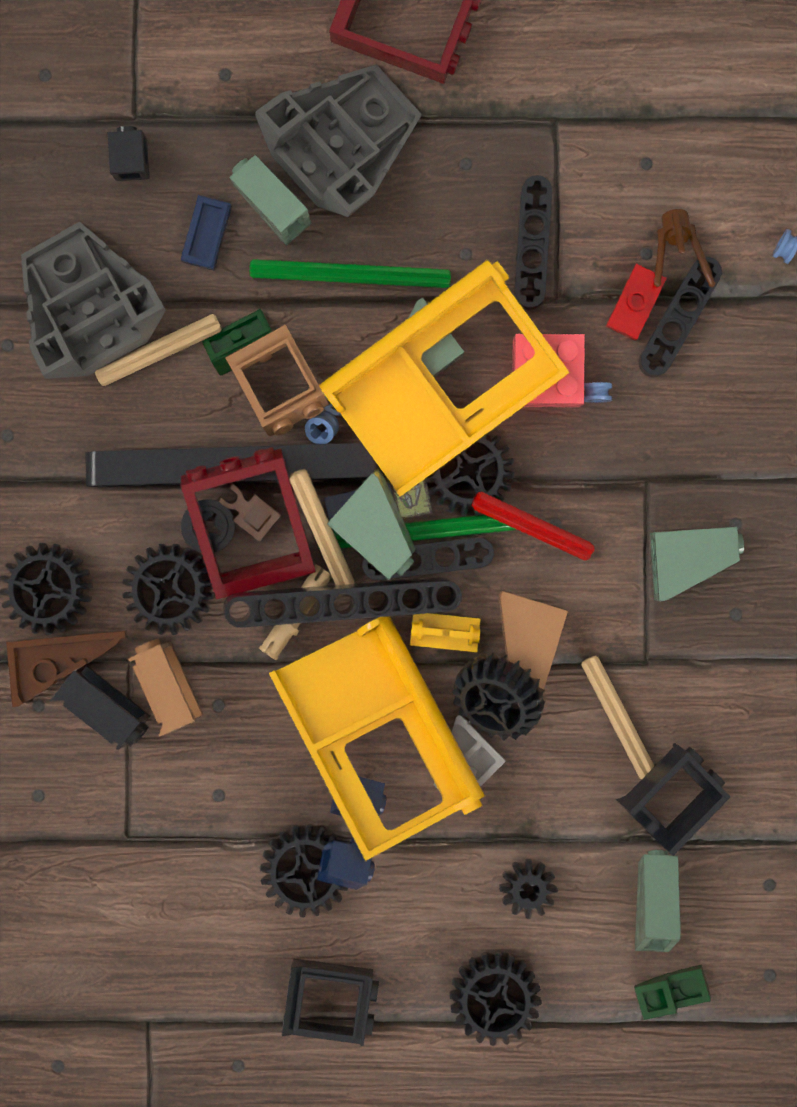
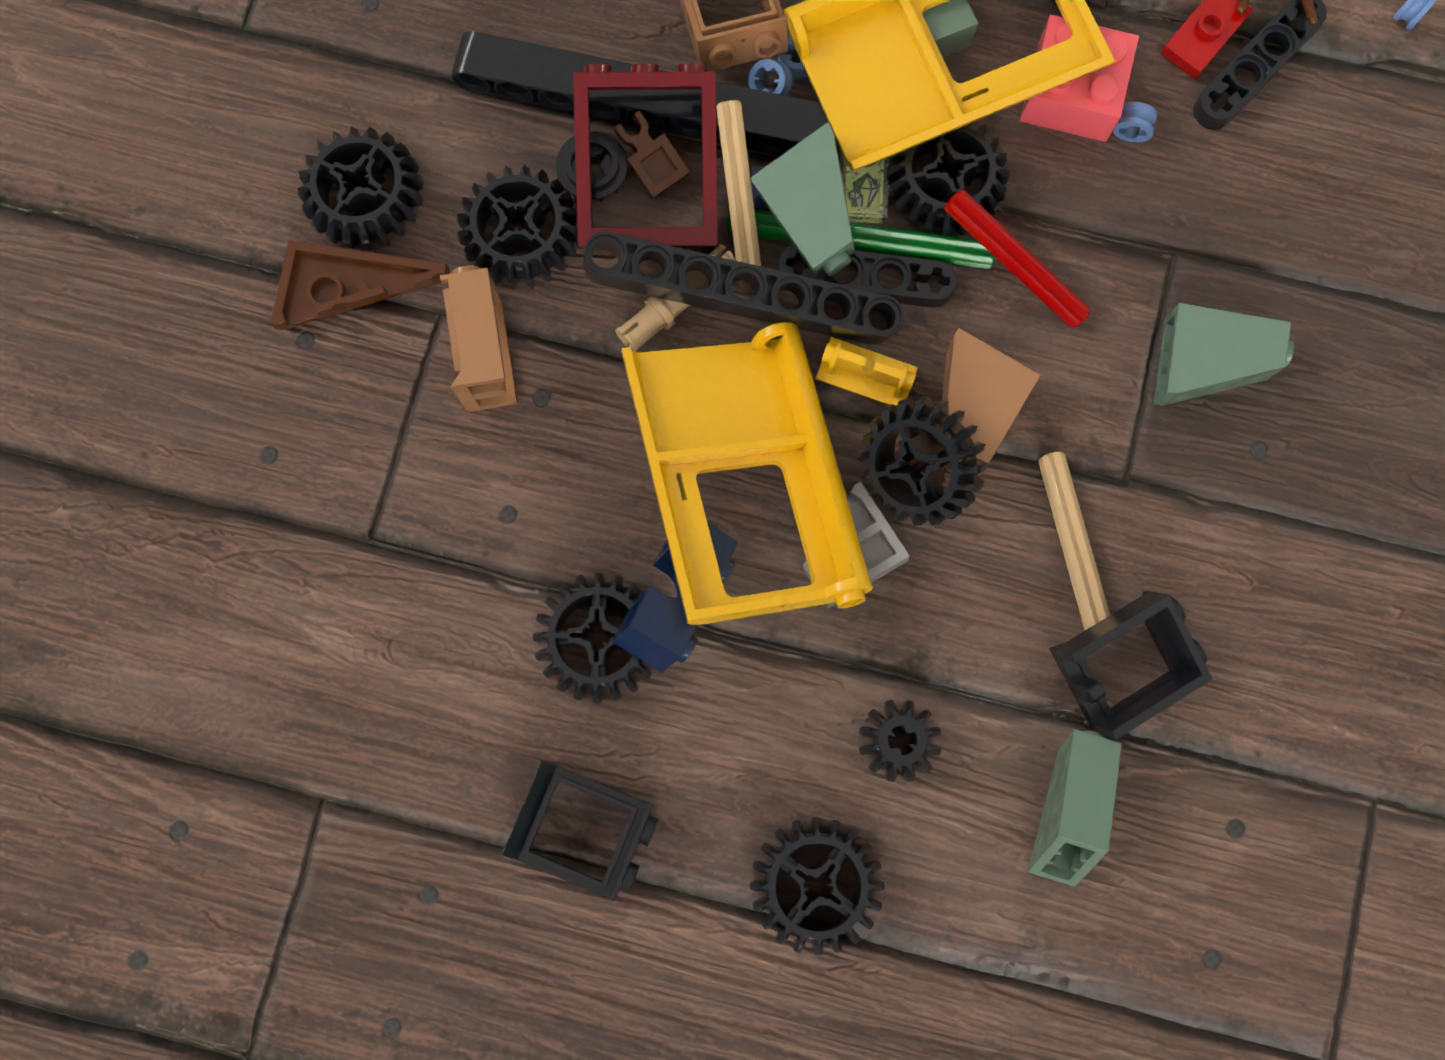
camera: 10 degrees right, 10 degrees down
(103, 707) = (386, 344): black window -> none
(672, 991) = (1069, 945): dark green slope -> none

